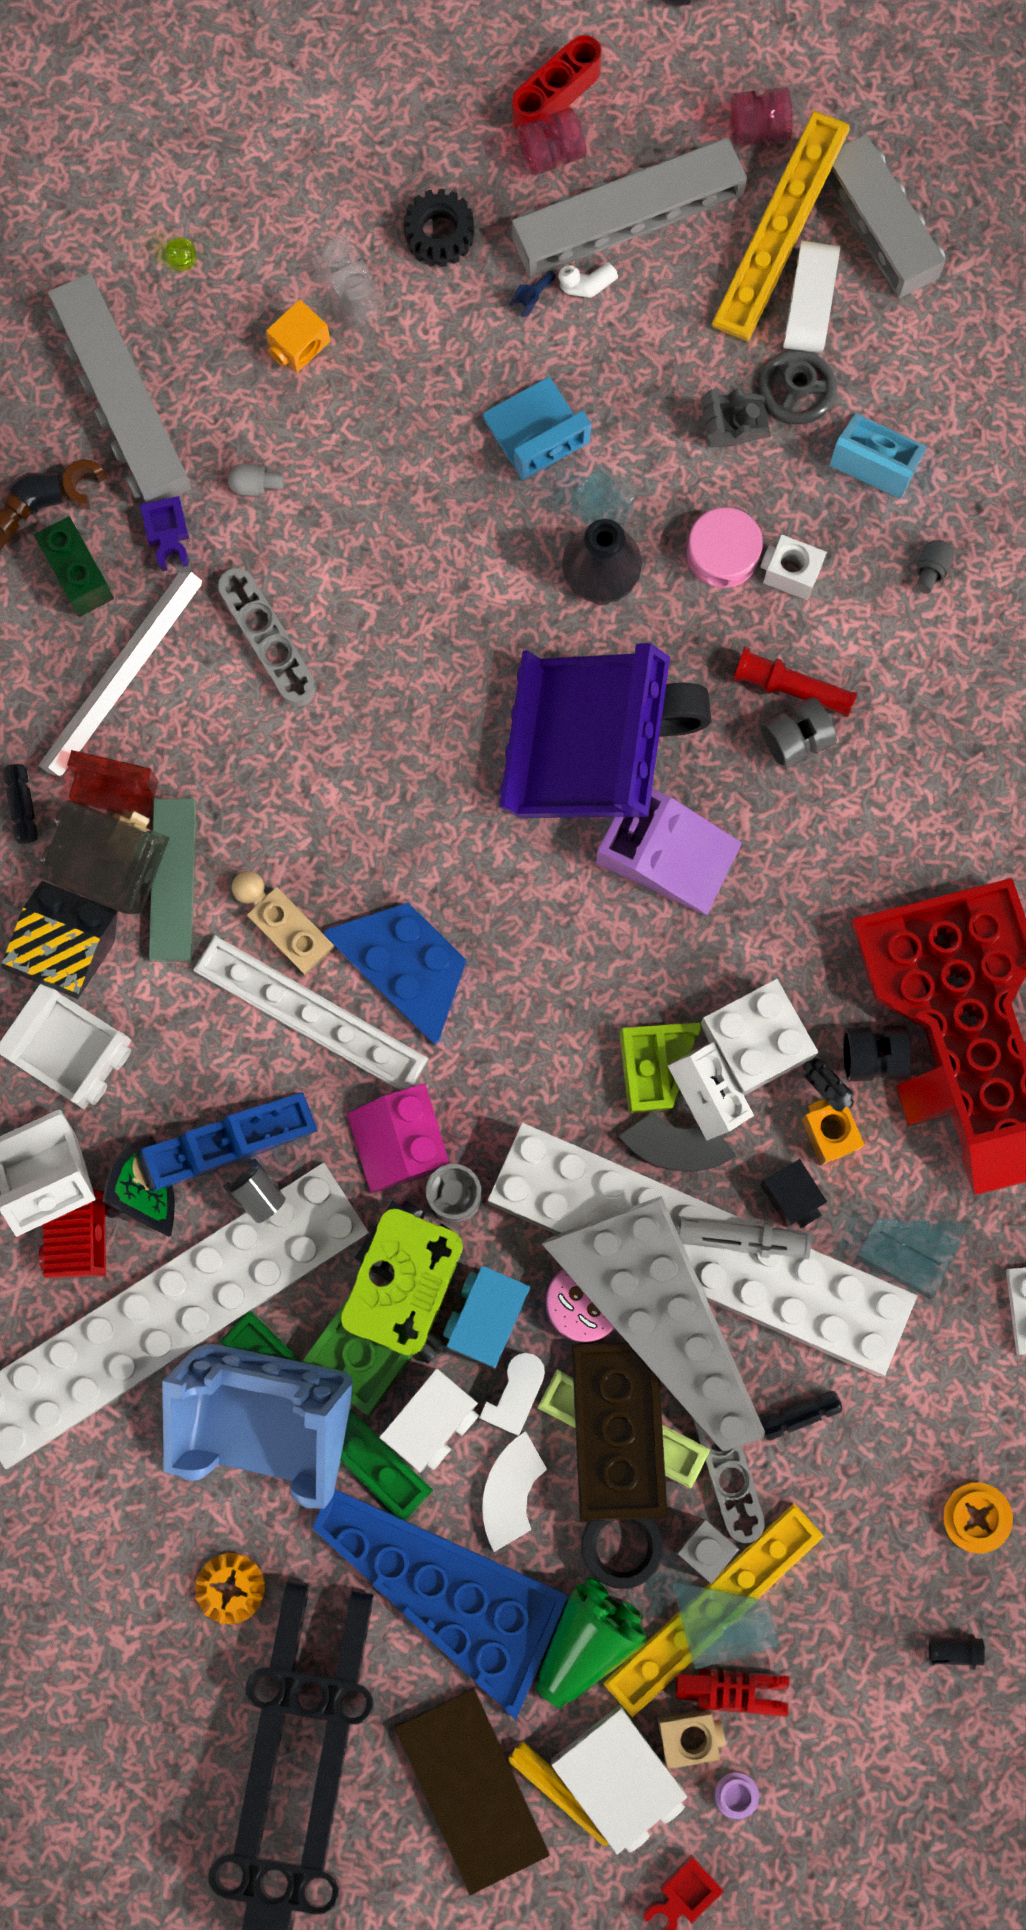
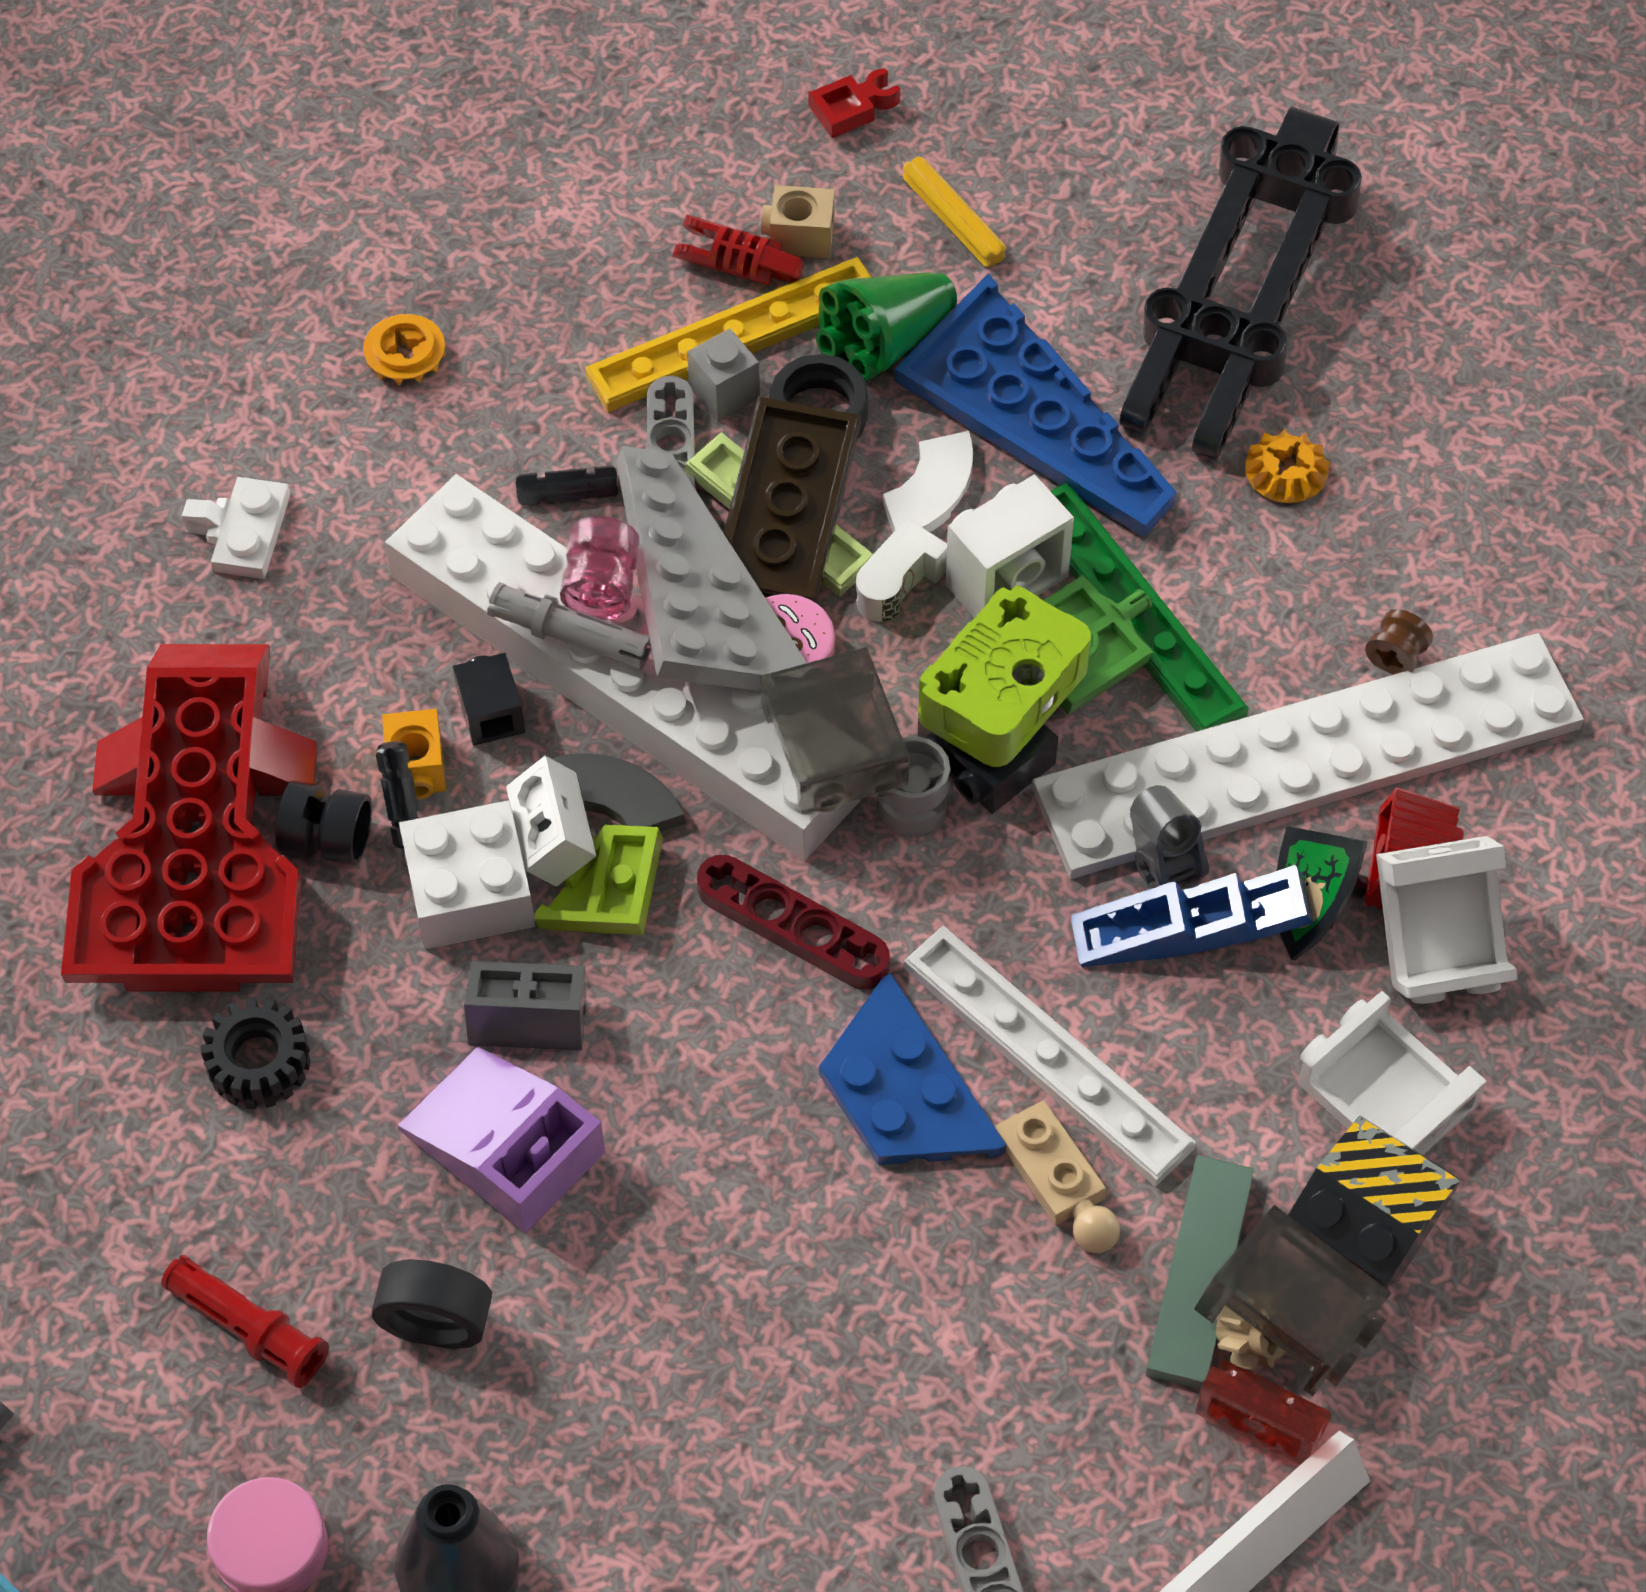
camera: 165 degrees left, 20 degrees down
(20, 803) = (1404, 1429): black axle -> none
(112, 1428) = (1399, 642): none -> reddish brown wheel
(257, 1418) = (1209, 606): medium blue windscreen -> none
(398, 1138) = (965, 870): dark pink slope -> none
(472, 1791) = (1054, 237): dark brown tile -> none
(487, 1316) = (910, 628): dark azure brick -> none
(516, 1190) = (836, 730): none -> clear smoke panel
(517, 1065) = (798, 915): none -> dark red beam
(585, 735) = (564, 1292): dark purple panel -> none
(619, 1781) = (893, 204): white panel -> none
(683, 950) = (525, 1005): none -> dark grey hinge
(723, 1624) = (724, 300): clear light blue wing -> none
(736, 1288) = (600, 567): none -> clear pink wheel
(736, 1795) = (765, 169): lavender plate -> none
(786, 739) = (265, 1240): dark grey wheel -> none
(806, 556) = (165, 1460): white brick -> none
(874, 851) = (265, 1081): none -> black tyre
(912, 1252) = (367, 612): clear light blue wing -> none
(957, 1651) = (478, 238): black pin -> none

